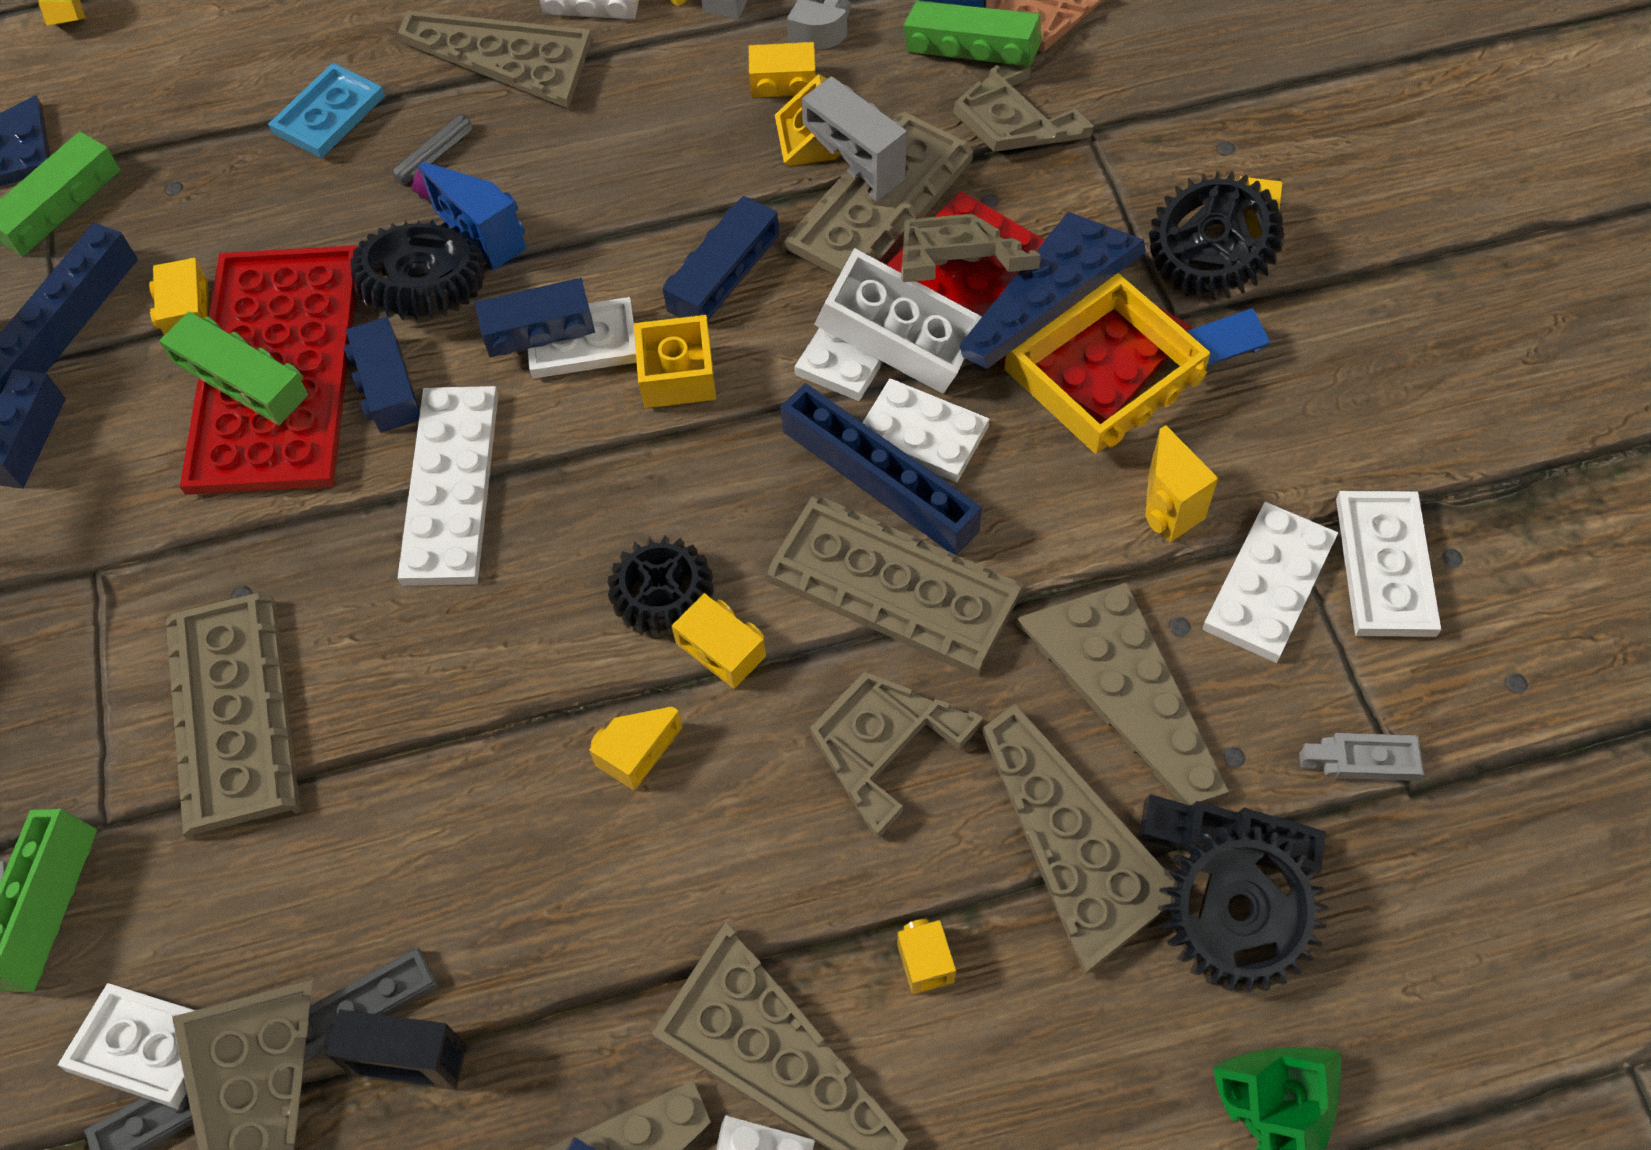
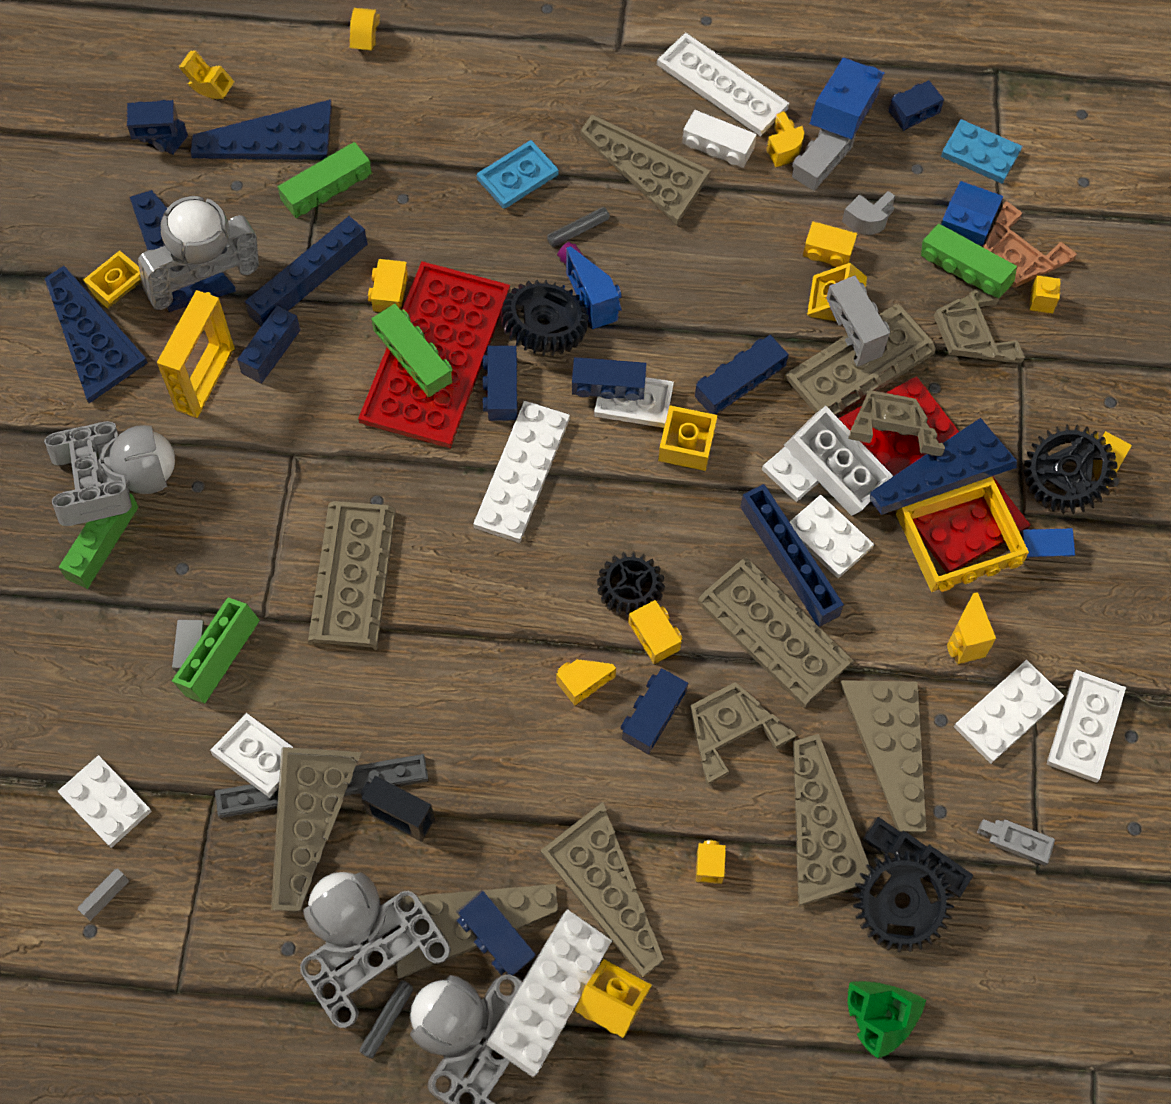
camera: 15 degrees right, 5 degrees up
(757, 756) = (653, 710): none -> dark blue brick
(1087, 44) = (1045, 294): none -> yellow brick

